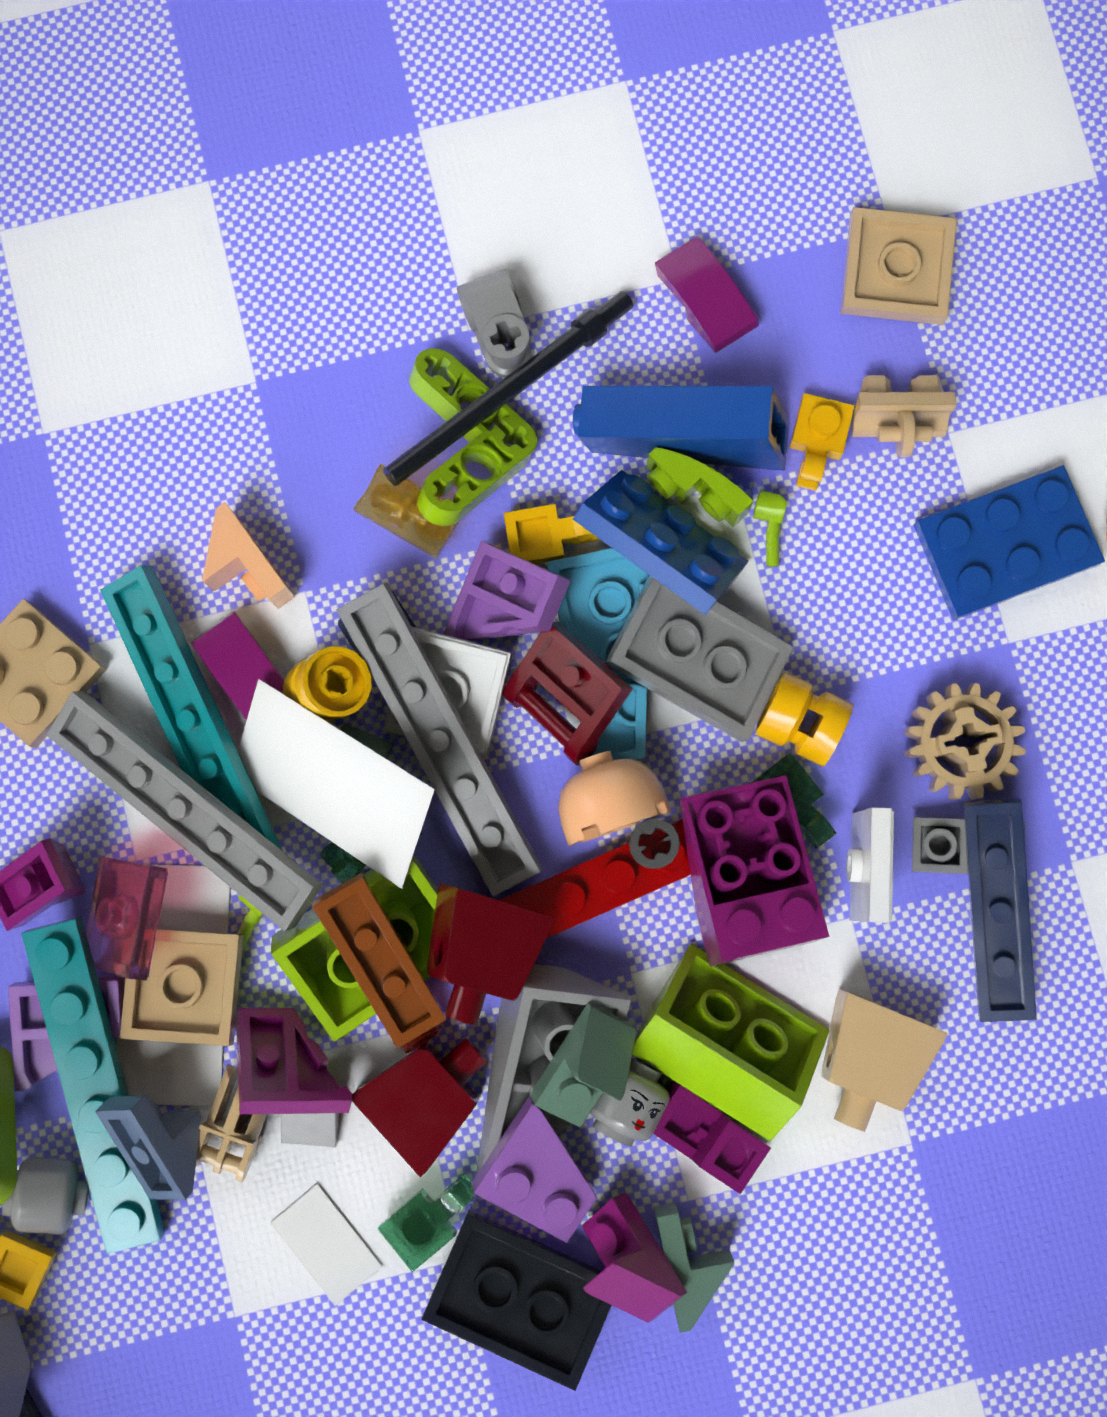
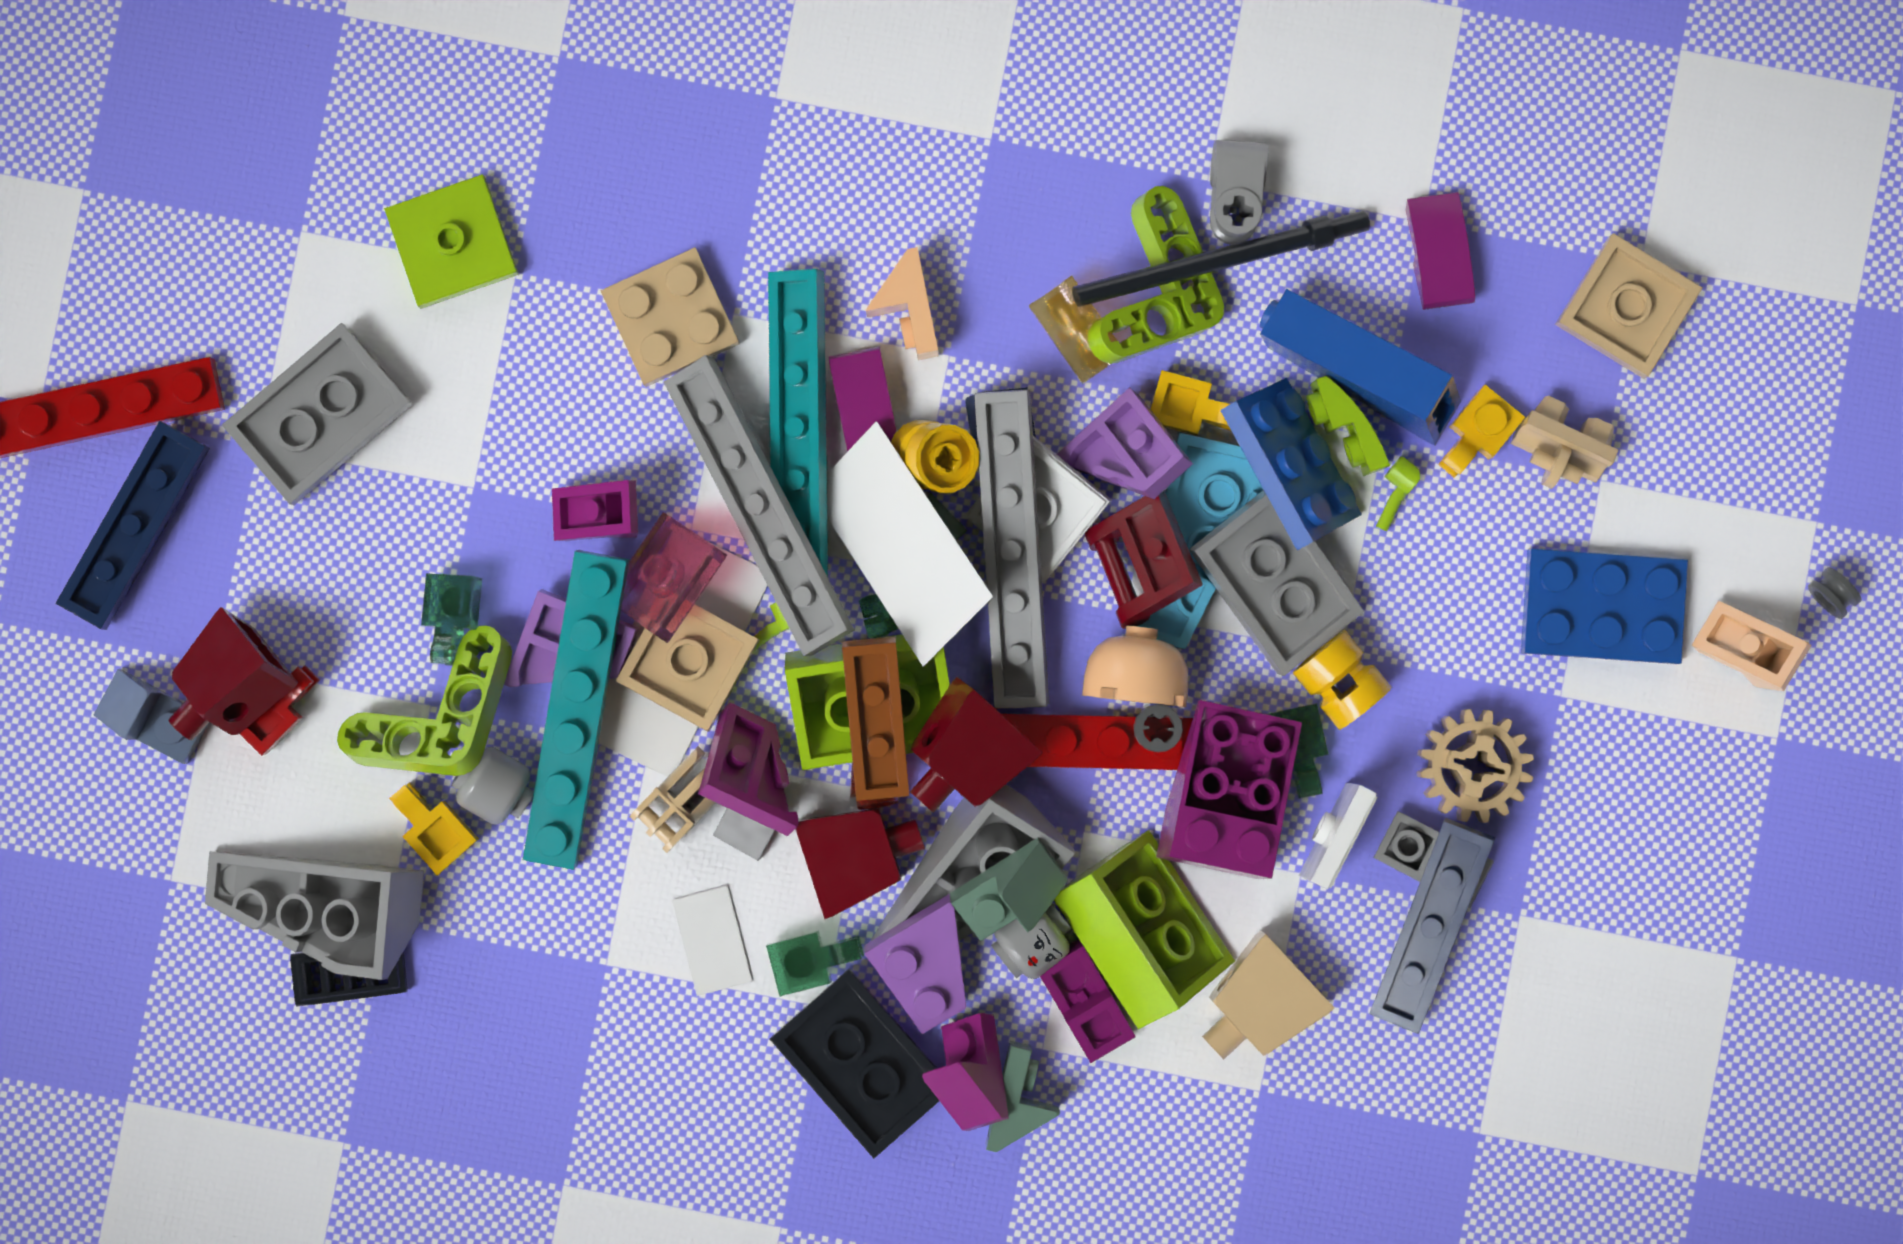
camera: 20 degrees right, 5 degrees up
(154, 1145) = (607, 786): sand blue slope -> none

